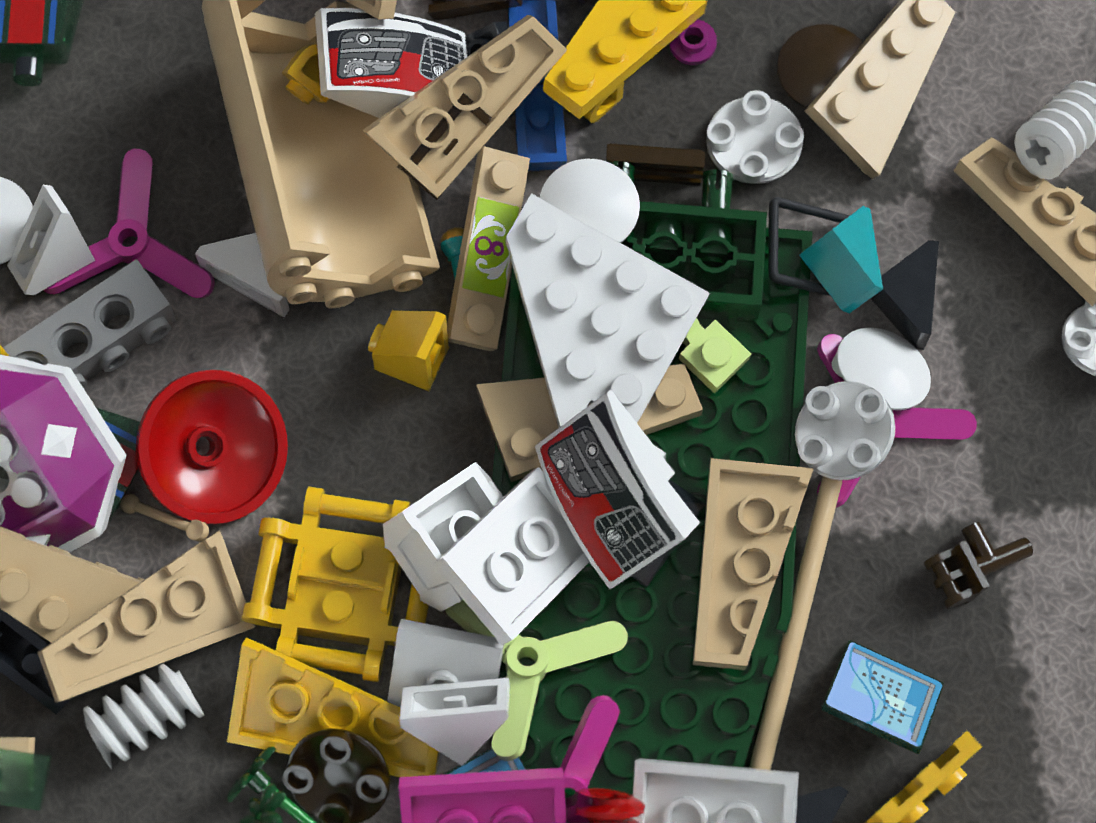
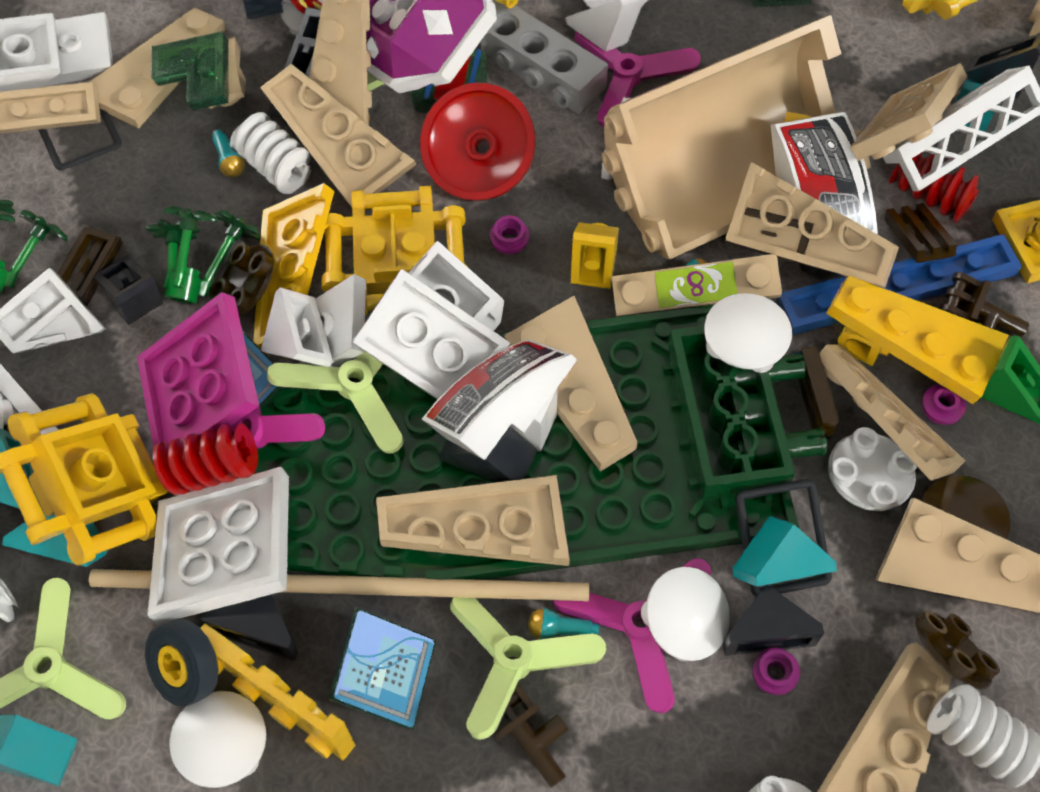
camera: 80 degrees right, 10 degrees down
(130, 775) = (230, 162): none -> piece
(195, 530) = (413, 149): tan hinge -> none
(347, 430) = (505, 226): none -> magenta plate
(596, 310) = (653, 355): white wing -> none
(705, 94) = (903, 426): none -> tan wing
(713, 354) = (655, 462): yellowish green plate -> none
(844, 430) = (615, 583): white dish -> none
(859, 517) = (546, 624): none -> teal piece
(916, 569) = (507, 672): none -> yellowish green piece
(965, 294) = (780, 658): none -> magenta plate
(972, 126) = (953, 651): none -> dark brown dish

